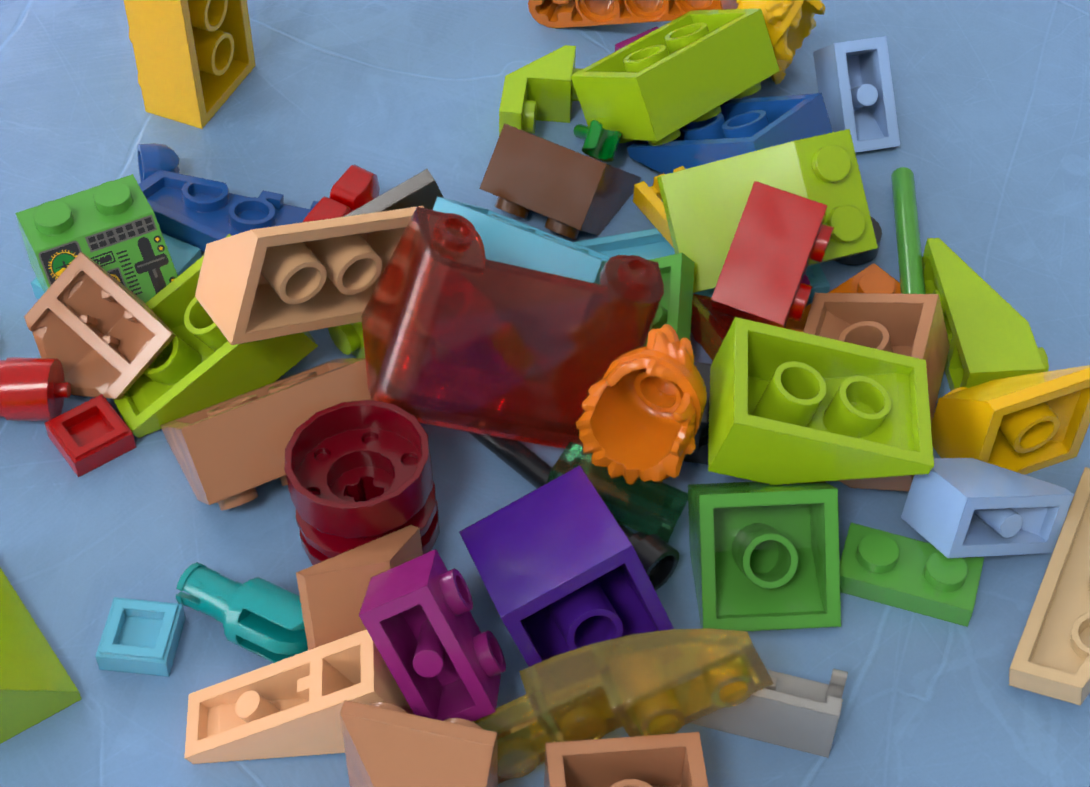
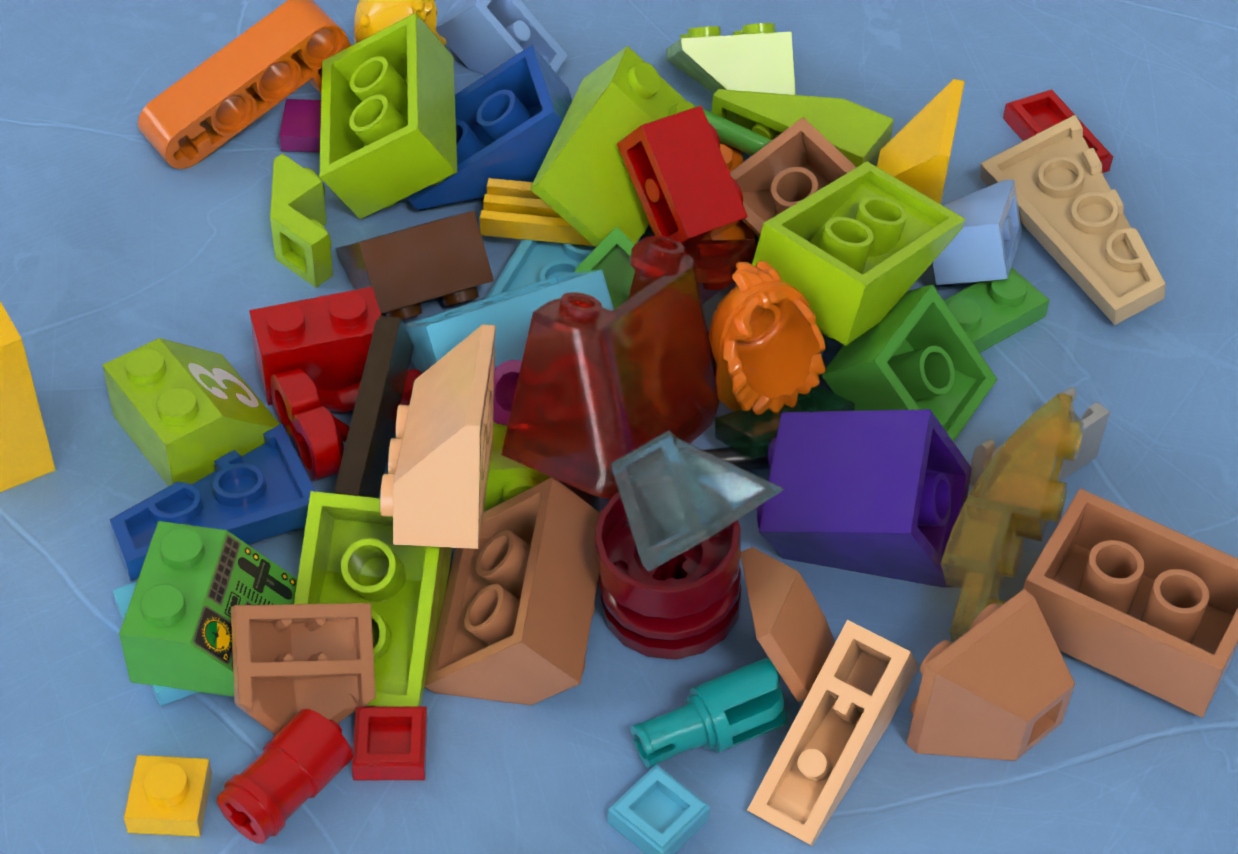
camera: 55 degrees left, 0 degrees up
(154, 158) = (87, 525): blue hinge -> none
(295, 143) = (184, 408): none -> lime slope
(373, 432) = (682, 496): none -> clear light blue slope
(402, 150) = (318, 335): none -> red brick
(432, 641) = (881, 590): magenta brick -> none
(598, 142) = (400, 209): green hand -> none
(1006, 250) = (746, 61): none -> slope

